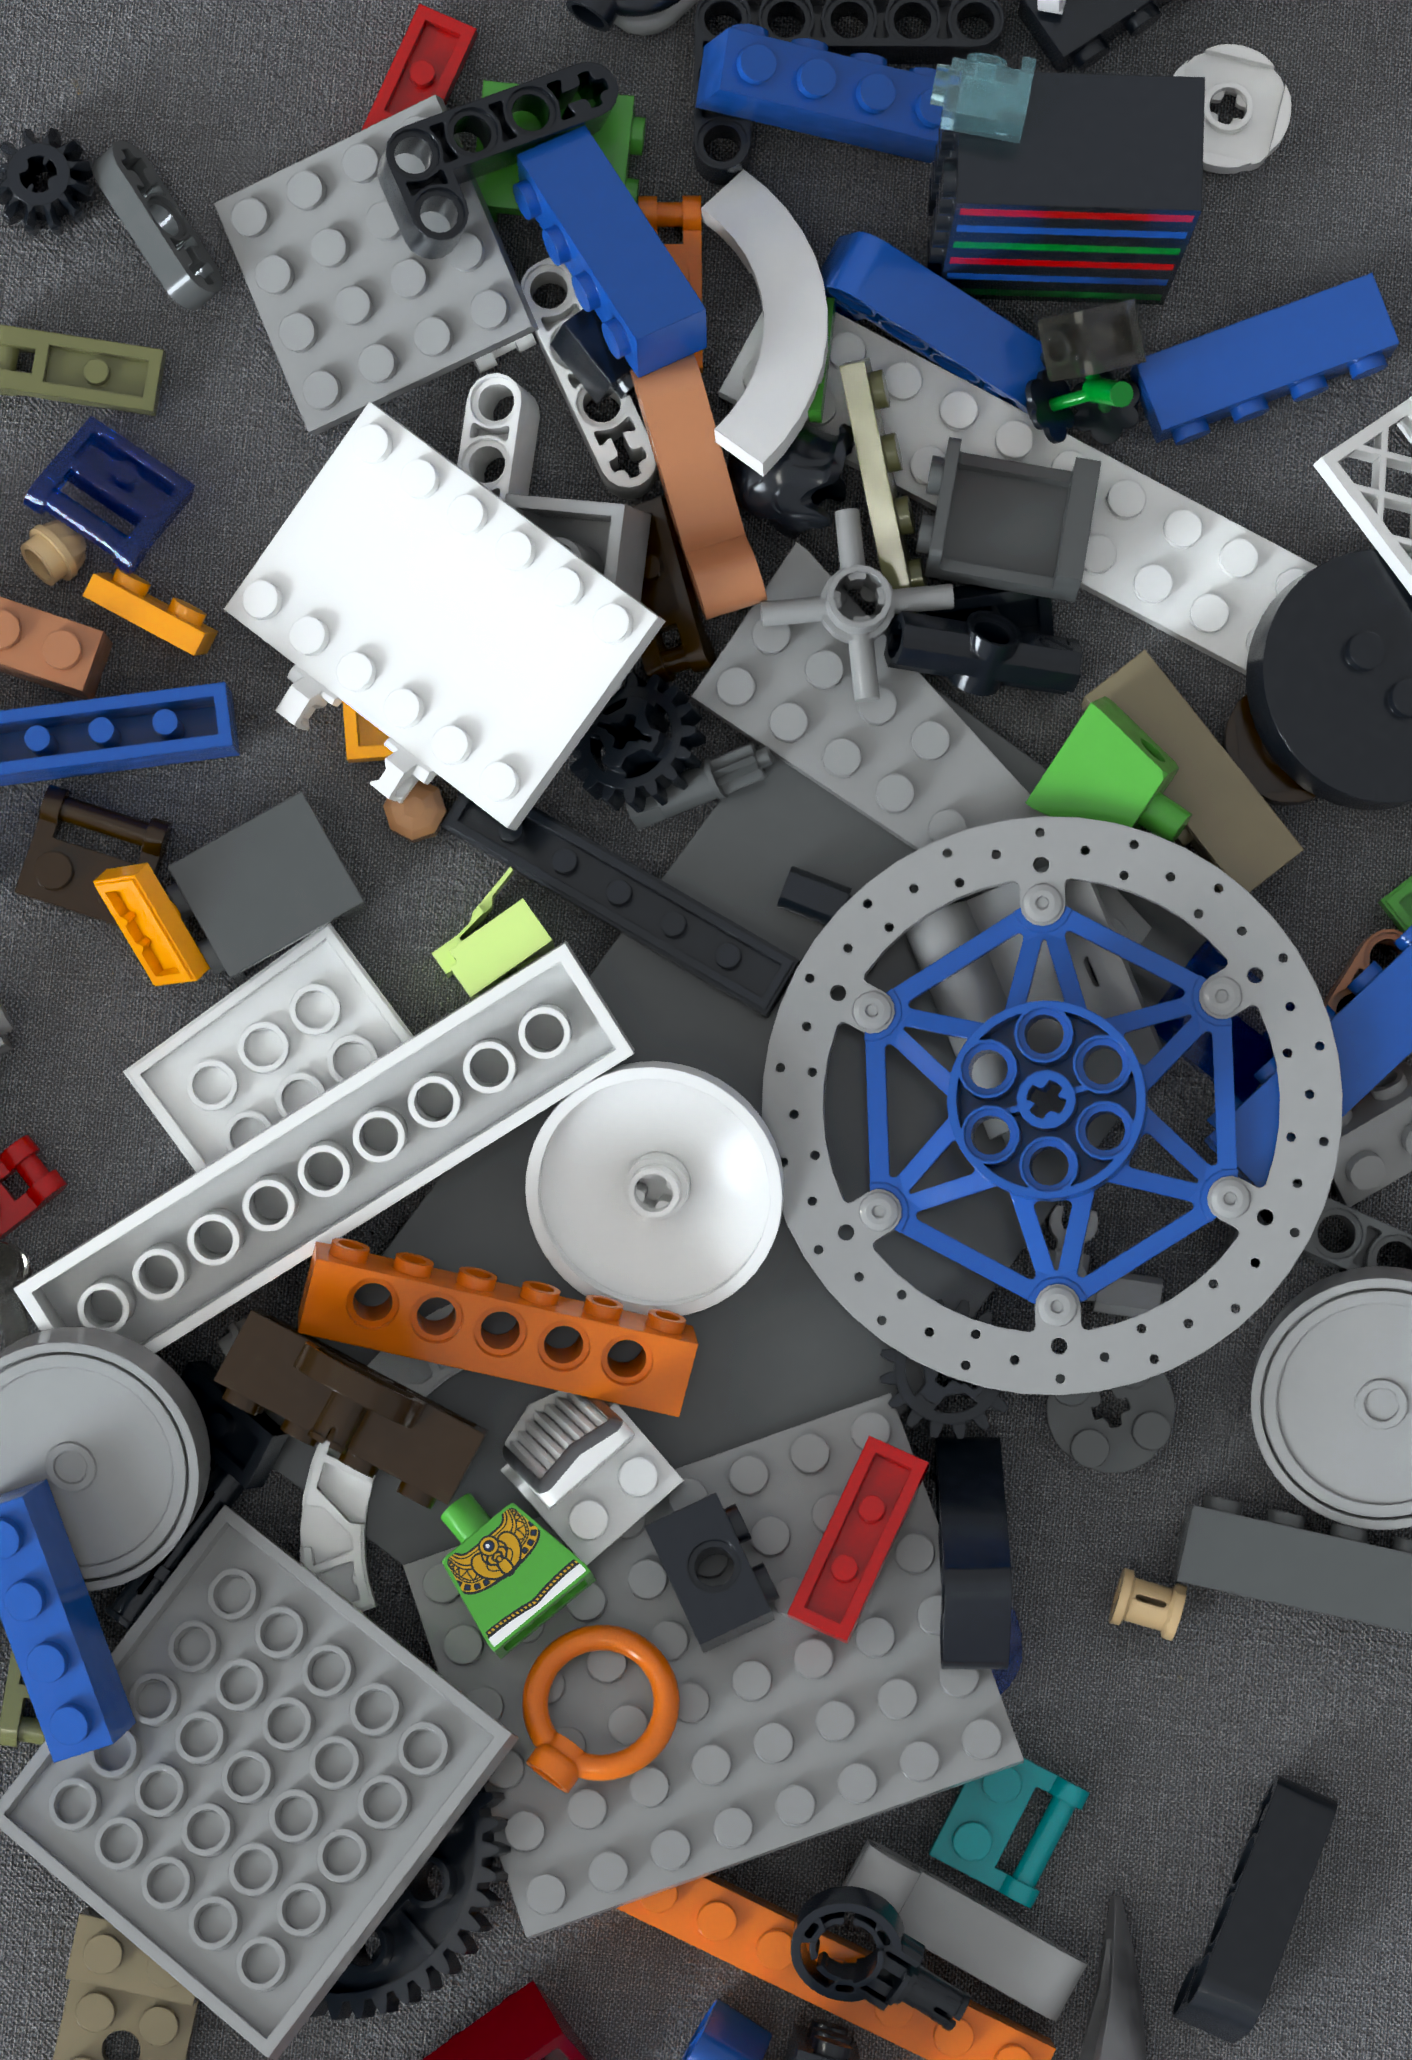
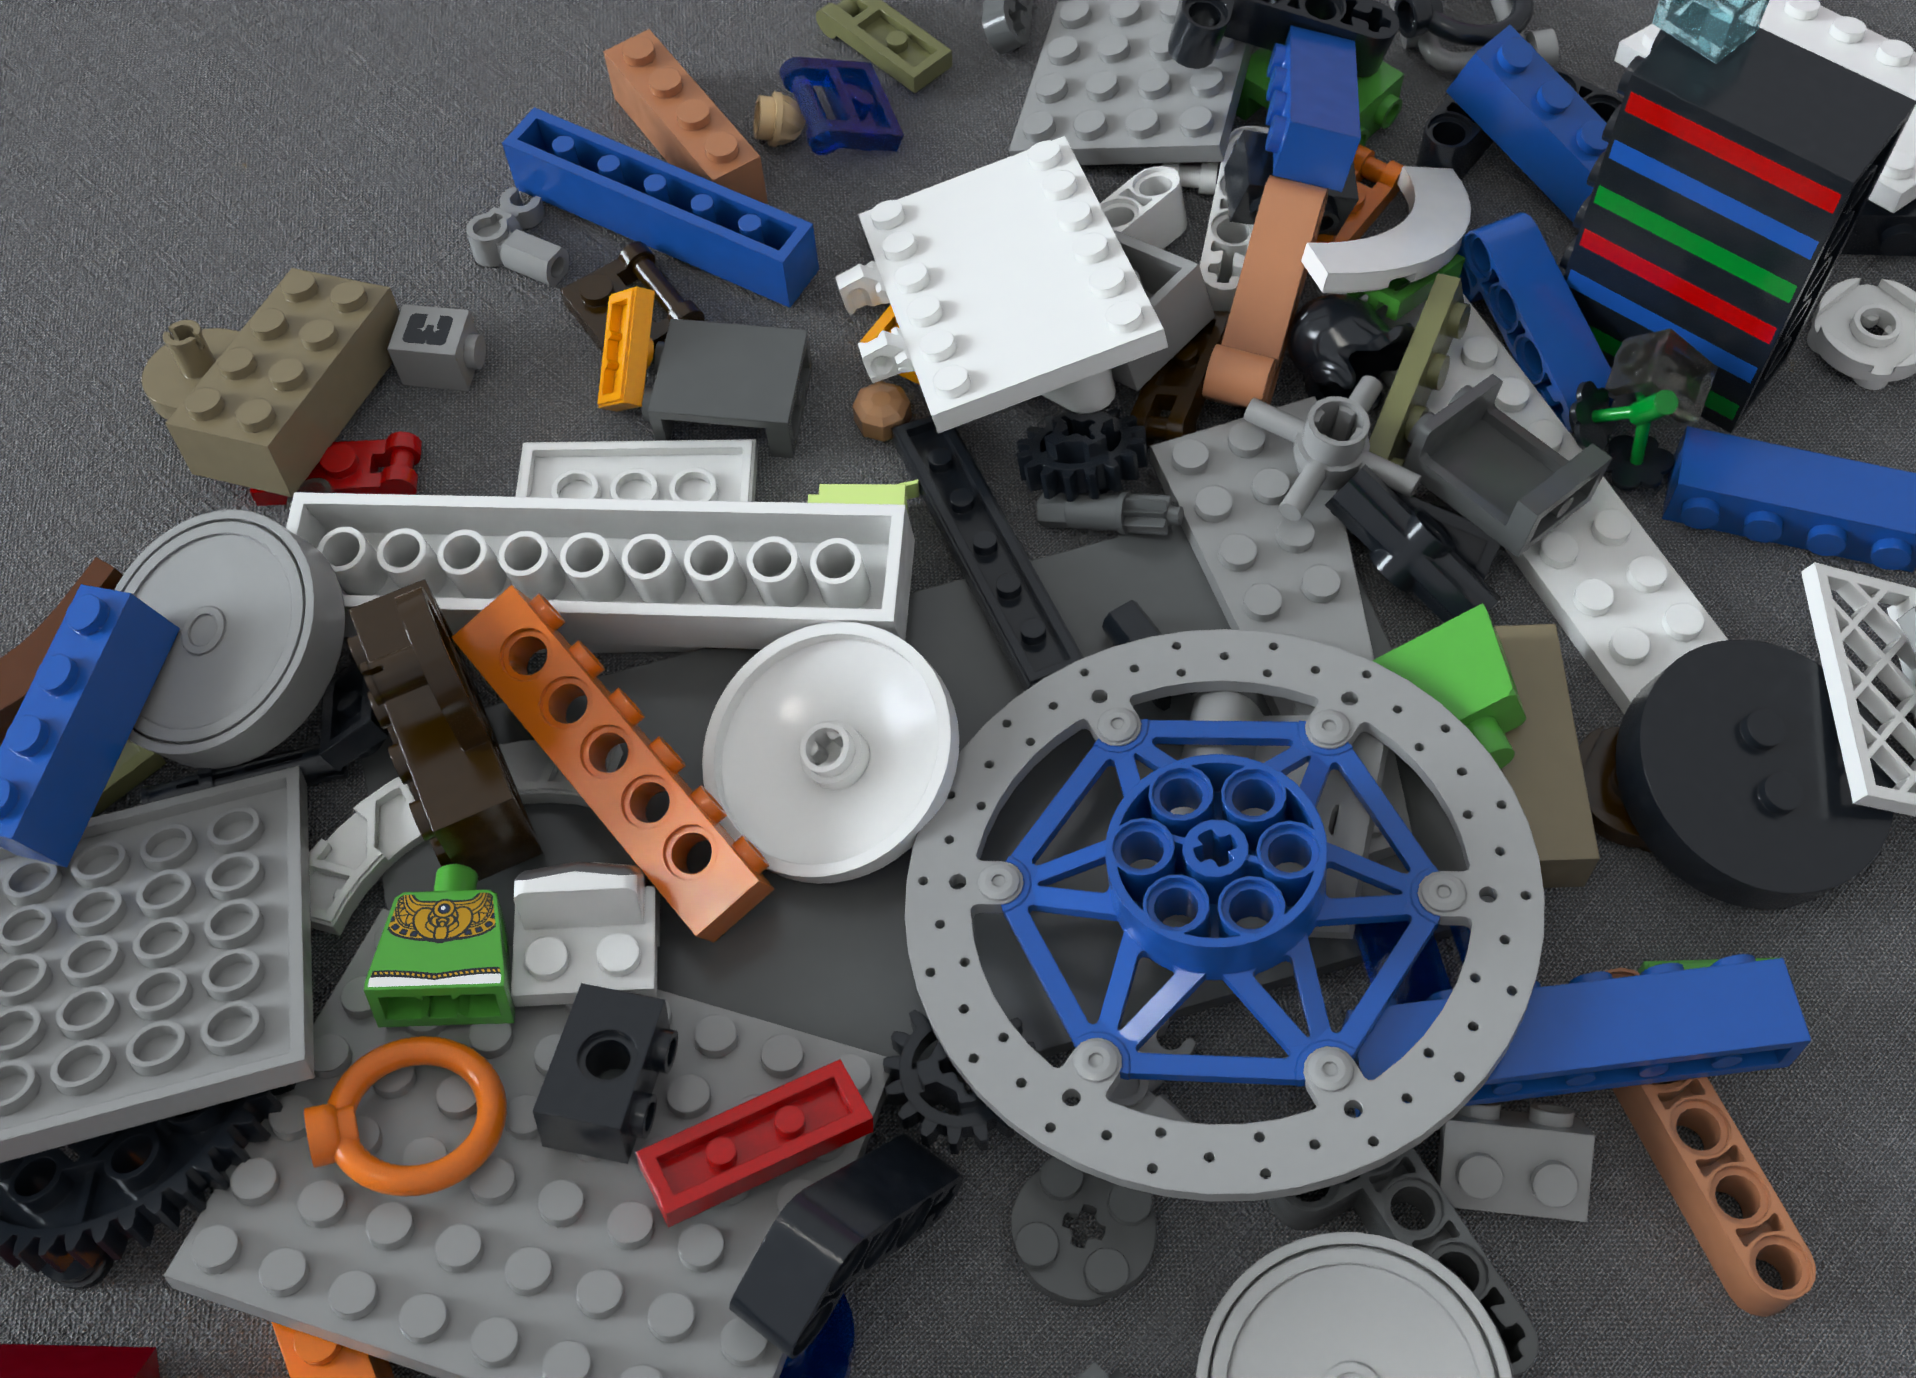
camera: 40 degrees right, 25 degrees down
(129, 598) = (817, 197): light orange plate -> none

